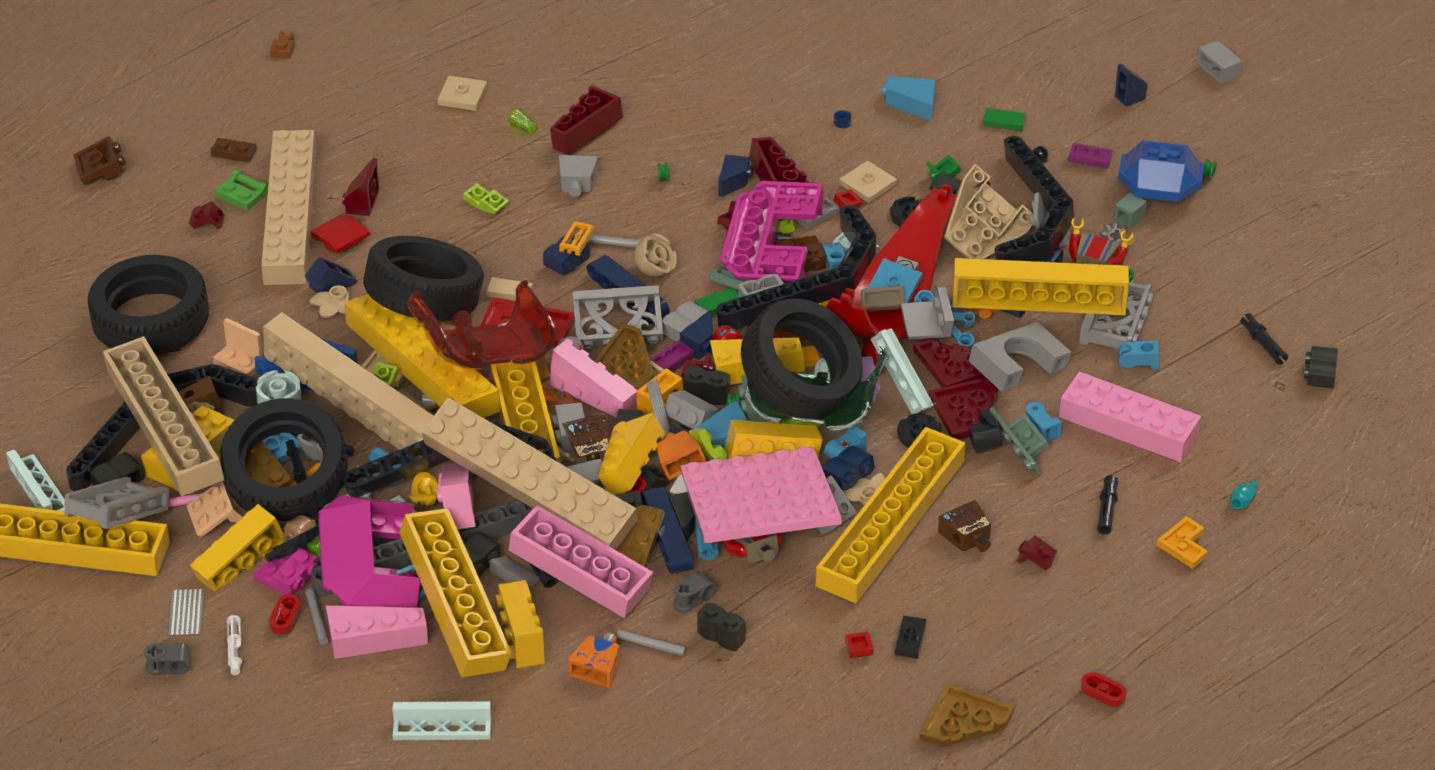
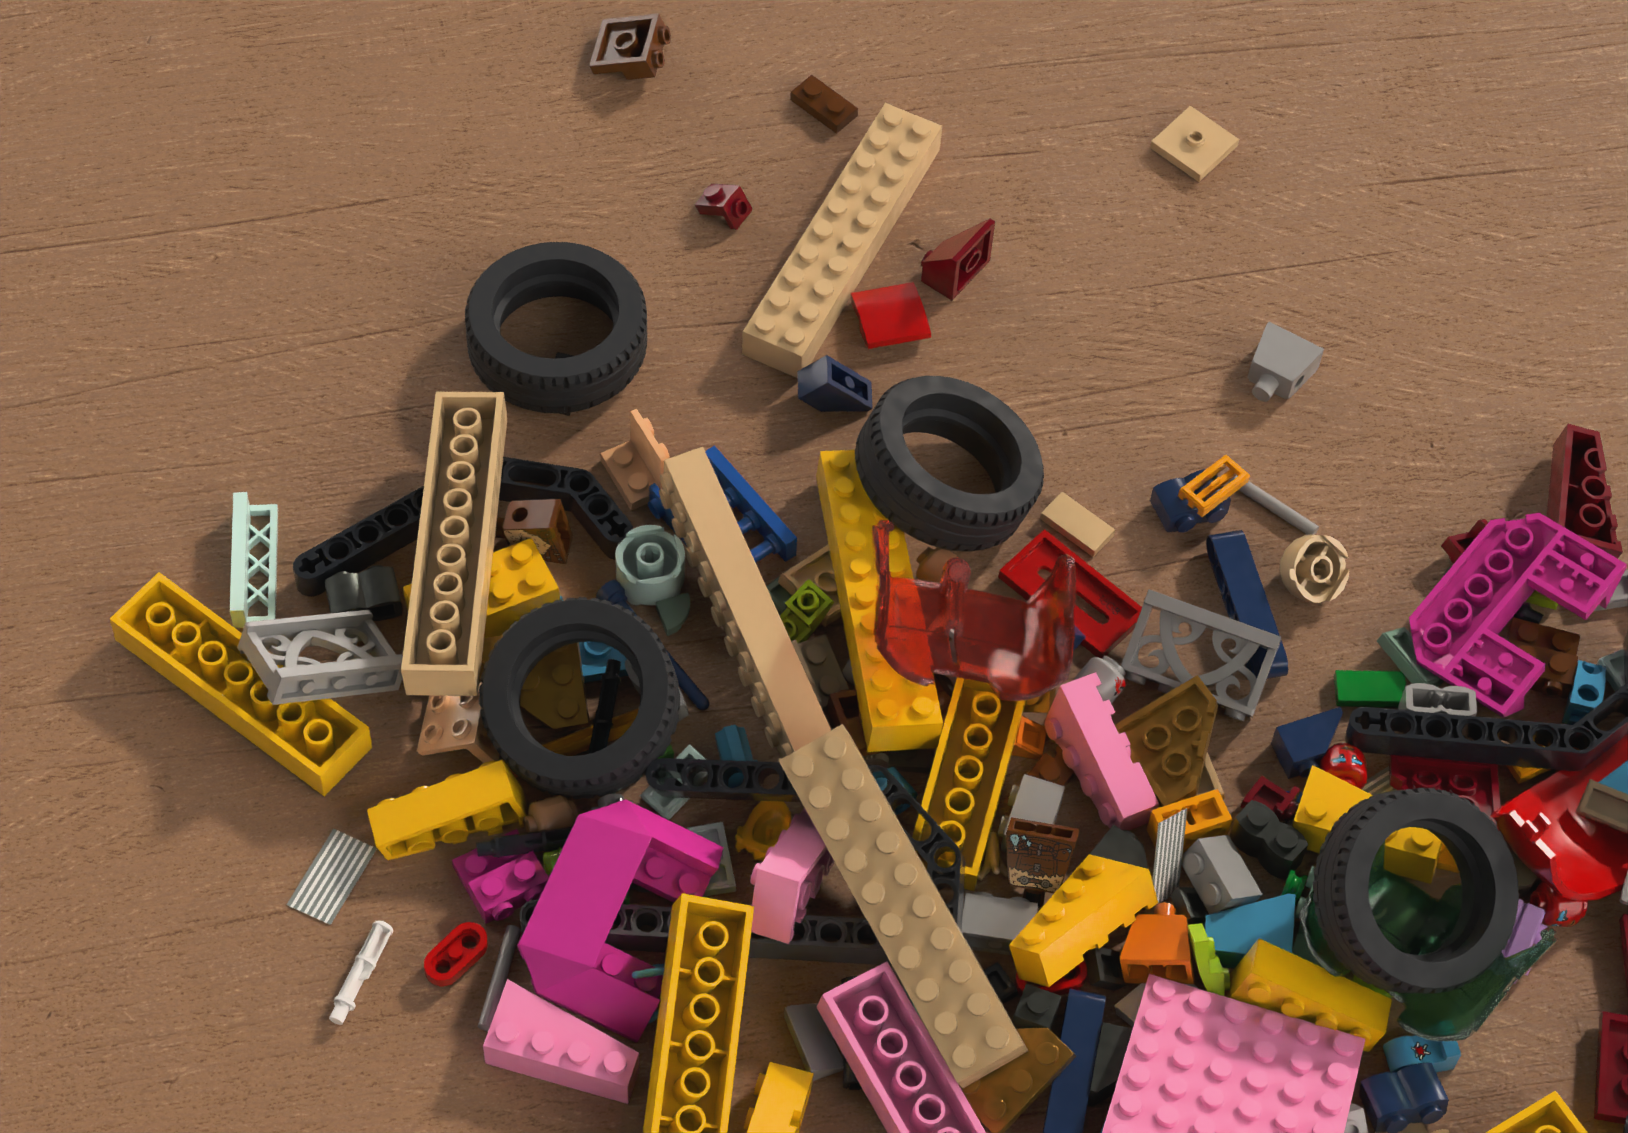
camera: 25 degrees right, 15 degrees up
(169, 660) = (261, 956): dark grey piece -> none
(239, 195) = (789, 183): bright green plate -> none
(331, 301) = (812, 430): tan plate -> none
(481, 551) = (774, 985): pearl dark grey brick -> none
(484, 200) = (1126, 347): lime slope -> none
(520, 120) = (1251, 231): clear neon green cone -> none
(586, 120) = (1342, 274): dark red wedge -> none
(663, 172) = (1410, 415): green bush -> none
(673, 356) = (1246, 759): magenta plate -> none
(681, 319) = (1297, 700): light grey brick -> none
(734, 174) = (1513, 467): dark blue slope -> none
(902, 372) = (1574, 968): light aqua fence -> none
(911, 427) = (1551, 1067): black tile -> none

